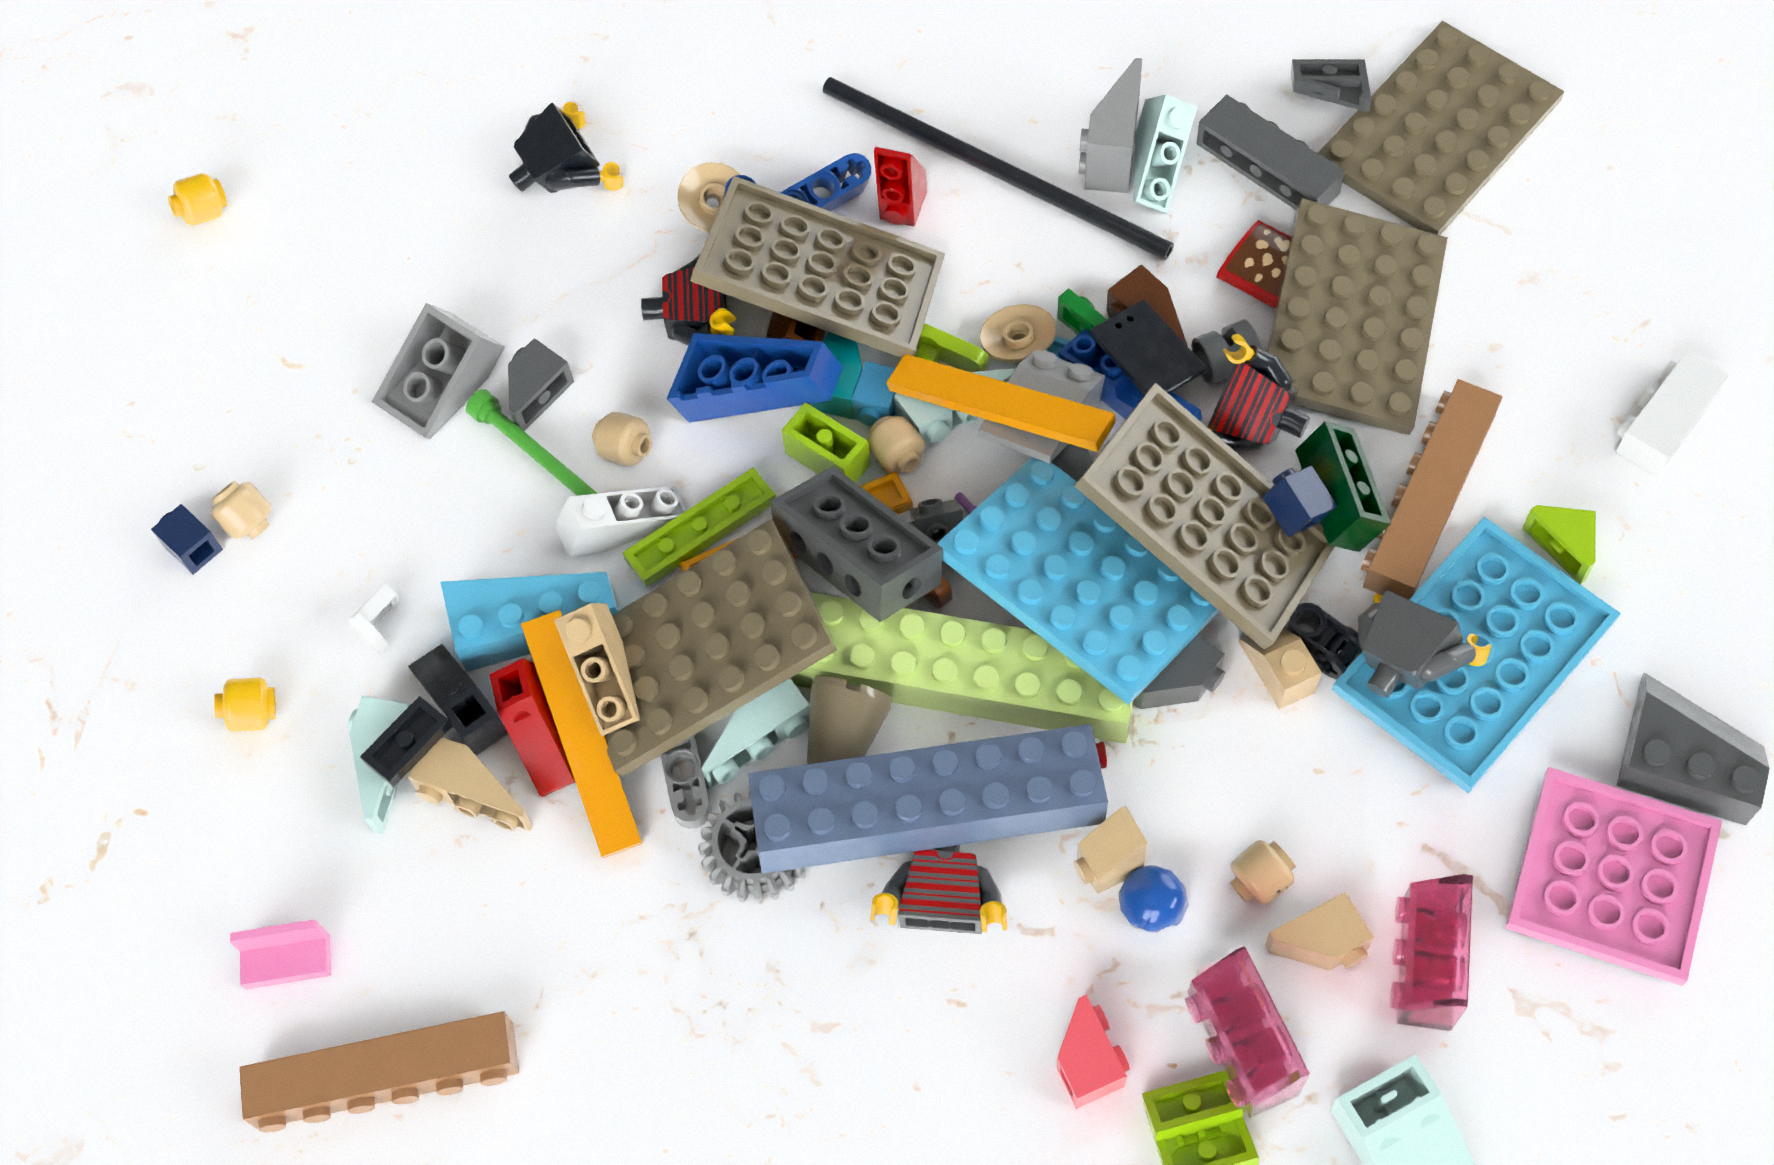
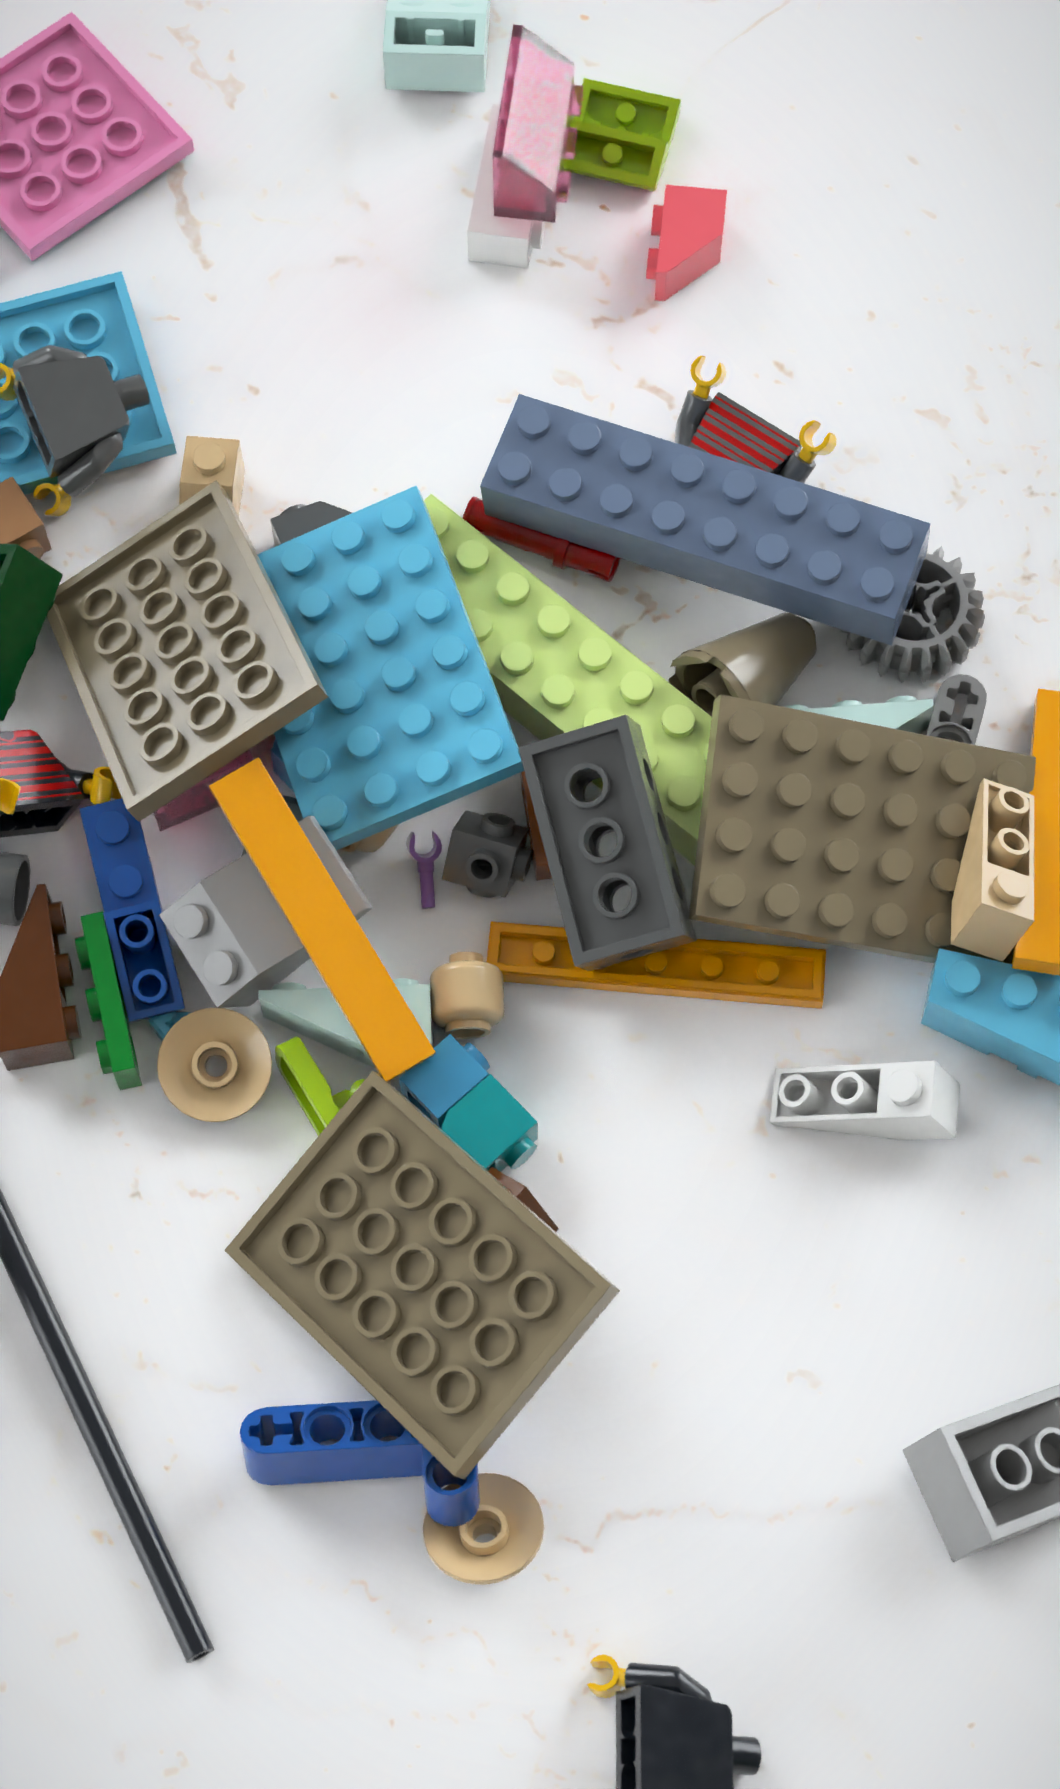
camera: 155 degrees left, 5 degrees up
(486, 408) = (970, 1372): bright green piece -> none
(535, 382) = (884, 1371): dark grey slope -> none
(622, 438) = (809, 1209): tan head -> none
(688, 307) = (609, 1369): torso -> none
(699, 527) = (772, 1033): lime plate -> none
(751, 375) = (600, 1171): blue wedge -> none
(825, 443) = (558, 1033): lime brick -> none
(899, 186) = (221, 1361): red slope -> none
(1111, 851) = (535, 375): tan slope -> none
(1147, 349) = (85, 914): black container -> none
(1153, 898) = (518, 348): blue hair -> none
(1262, 872) = (393, 307): tan head -> none
(1299, 500) = (61, 620): dark blue brick -> none
(1324, 936) = (379, 223): tan slope -> none
(1326, 640) = (143, 488): black piece -> none
(1433, 952) = (285, 140): clear pink slope -> none

